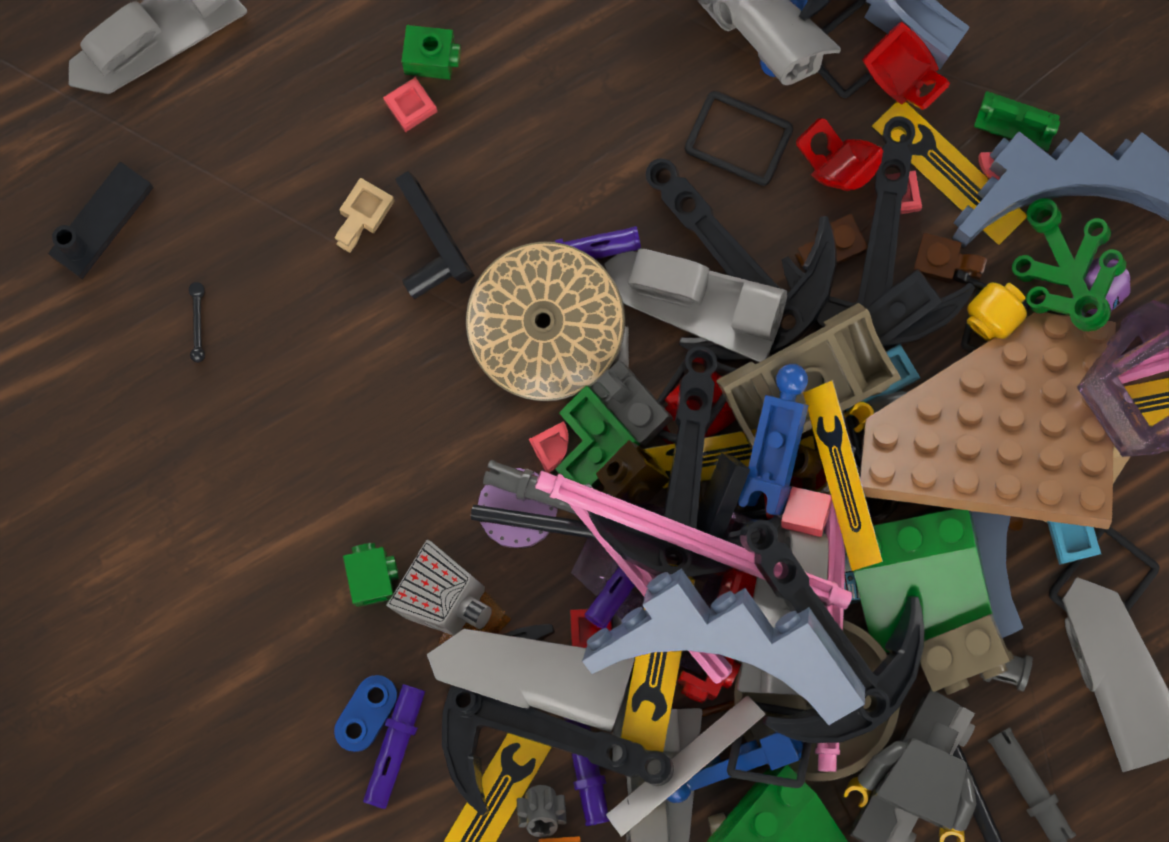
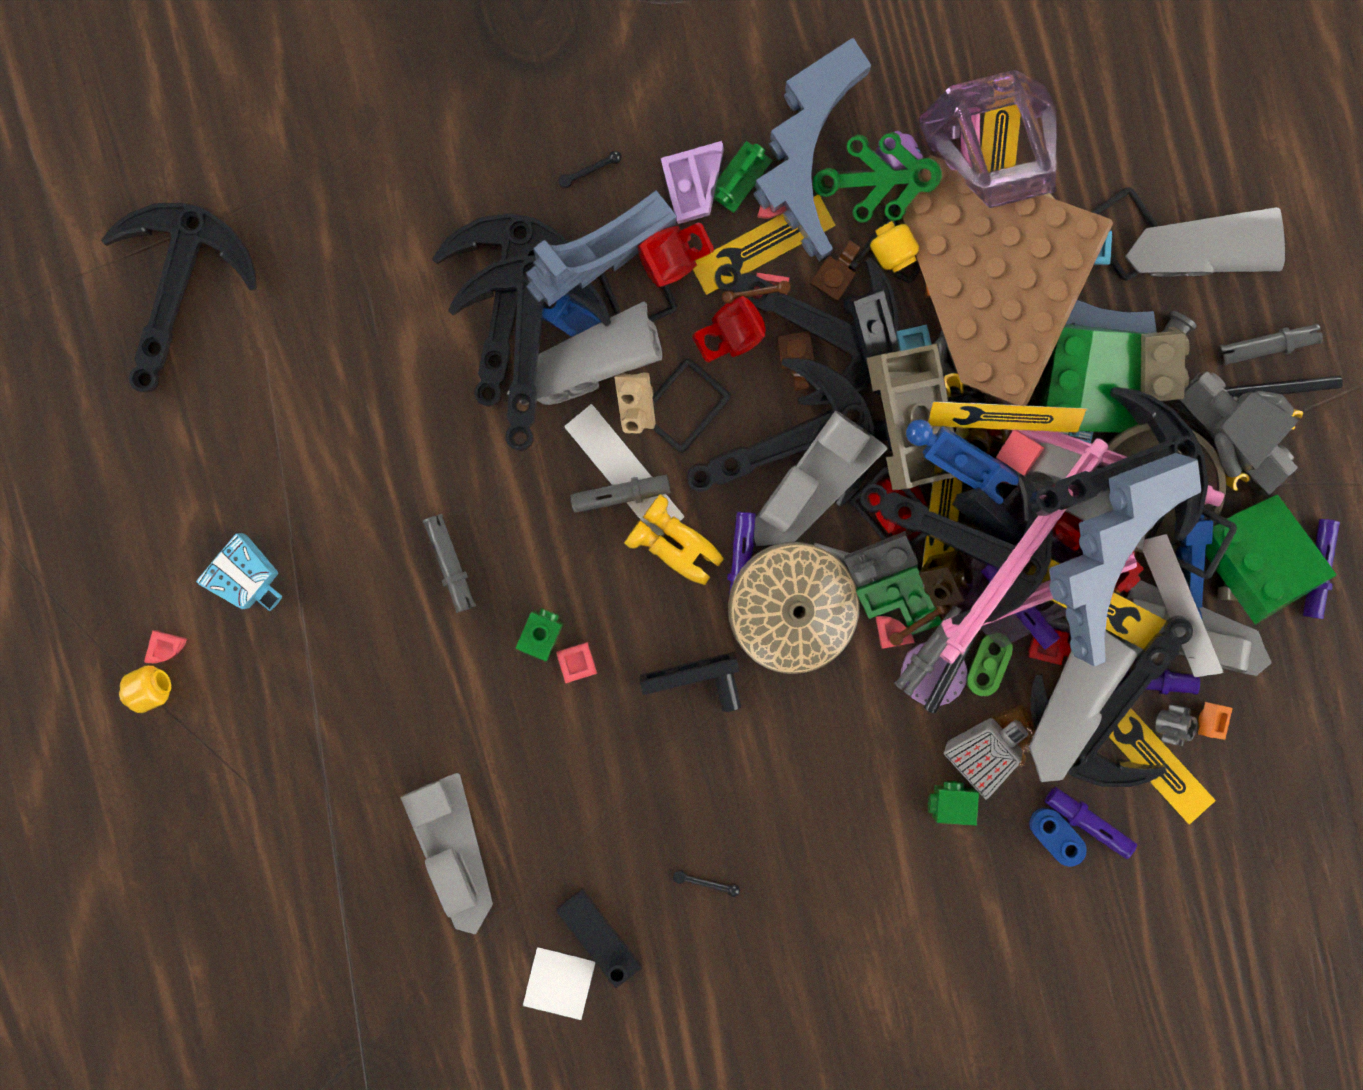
camera: 75 degrees left, 10 degrees up
(36, 193) = (559, 983): none -> white sticker
(363, 209) = (655, 725): tan plate -> none
(546, 450) = (896, 638): none -> reddish brown hinge
(548, 566) = (992, 665): none -> bright green plate
(561, 177) = (688, 538): none -> yellow piece
(624, 107) = (635, 490): none -> dark grey pin
(642, 95) = (613, 458): none -> white sticker
(726, 75) = (635, 402): none -> tan hips
(908, 195) = (783, 288): none -> reddish brown hinge
(995, 68) = (693, 180): none -> lavender wing

